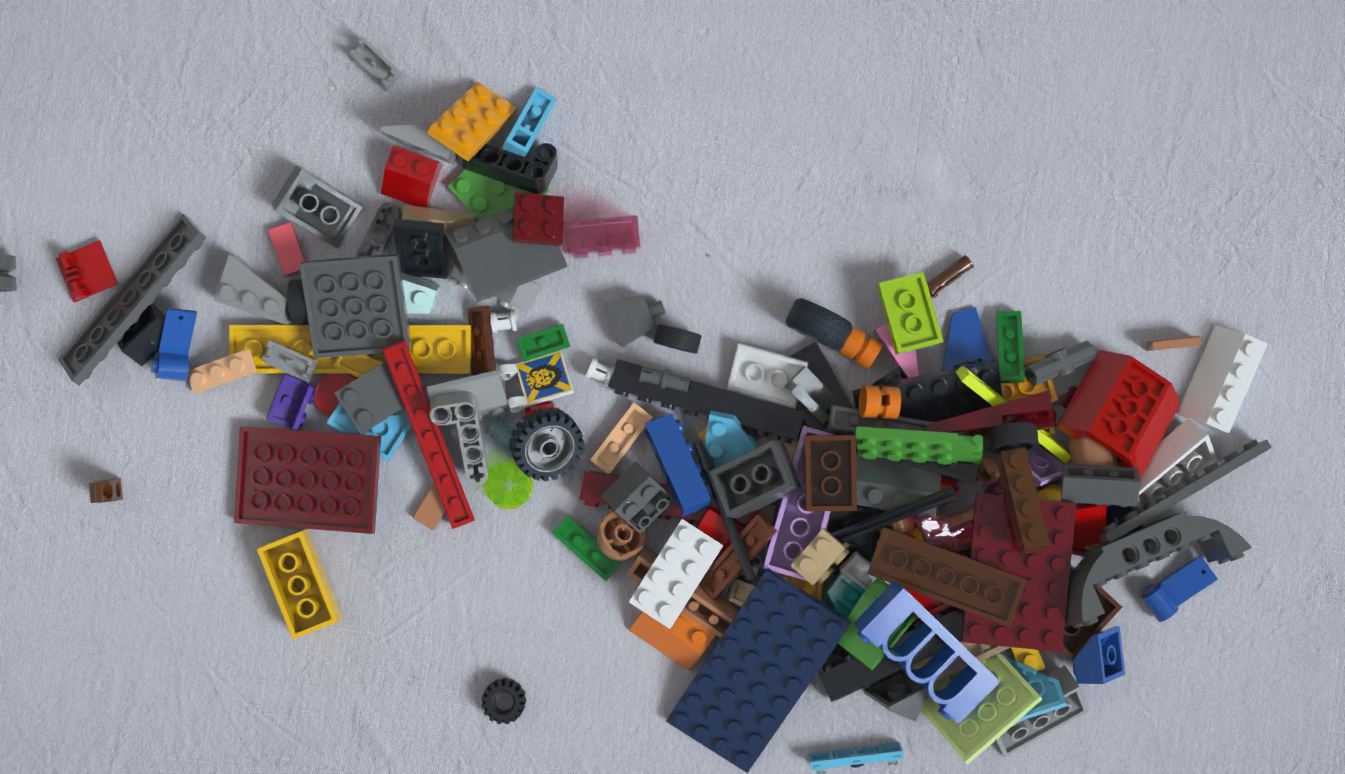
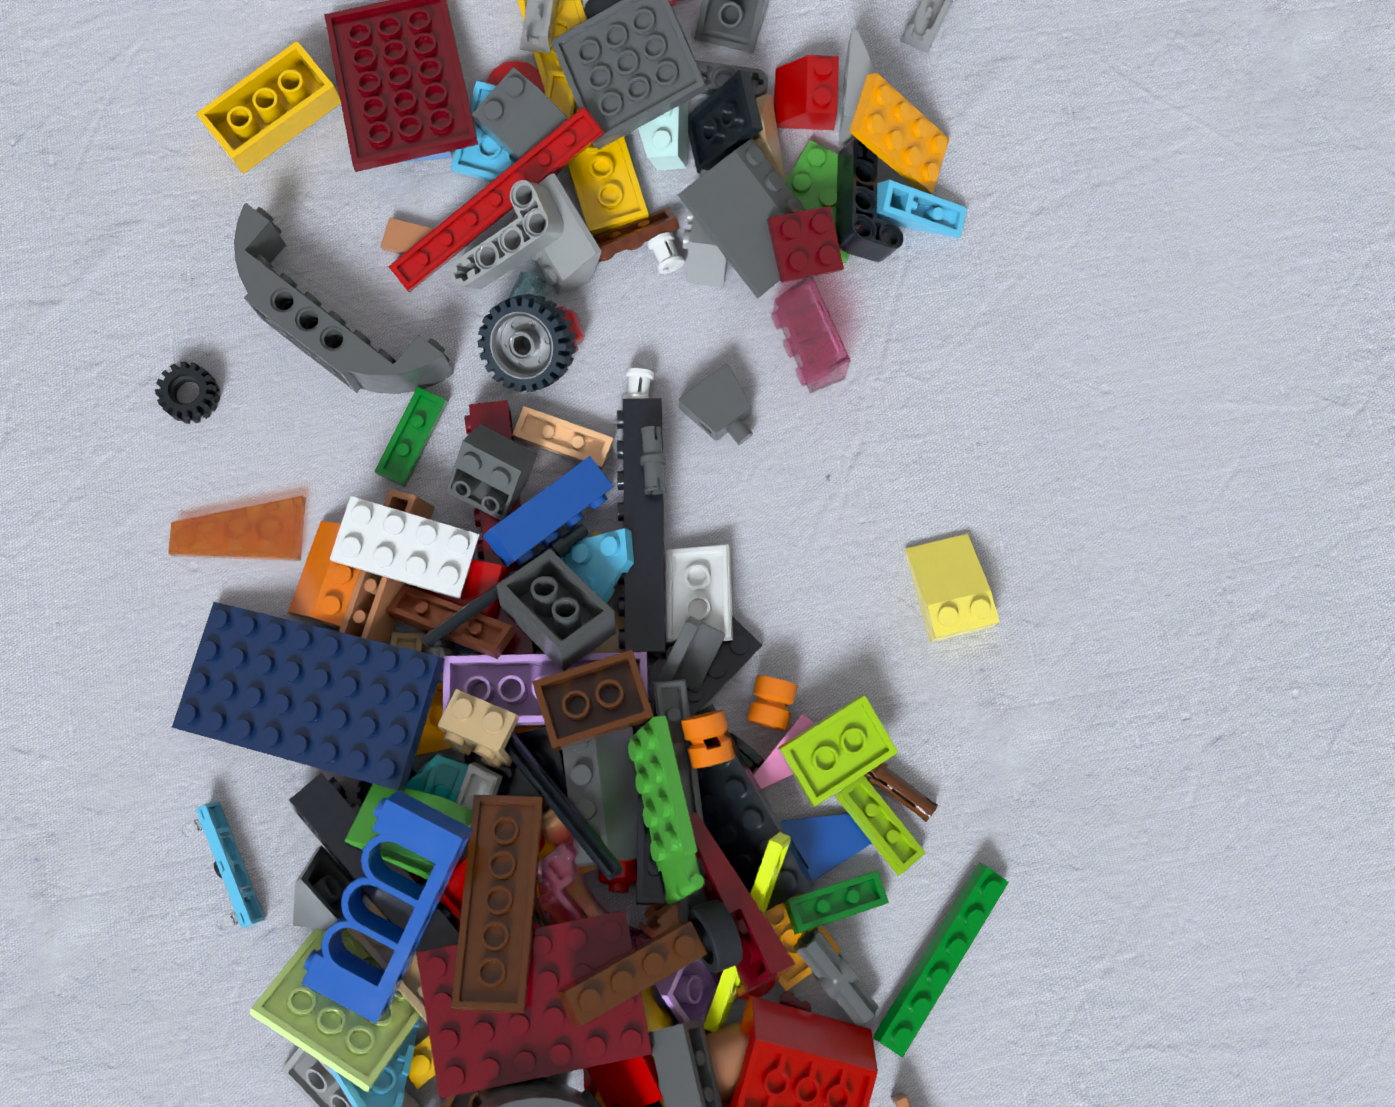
camera: 75 degrees right, 10 degrees down
(291, 402) = (490, 35): dark purple bracket -> none
(454, 619) = (322, 333): none -> dark grey slope
(499, 494) = (449, 310): clear neon green plate -> none
(540, 380) = (606, 314): flag -> none
(543, 342) = (654, 308): green plate -> none
(618, 538) = (430, 467): nougat cylinder -> none
(622, 681) = (250, 532): none -> clear orange wing
(677, 338) = (710, 465): black tyre -> none
(816, 194) = (951, 588): none -> light yellow slope
(819, 324) = (786, 637): black wheel -> none
(968, 299) = (880, 825): none -> lime plate
(1069, 287) = (940, 960): none -> green plate

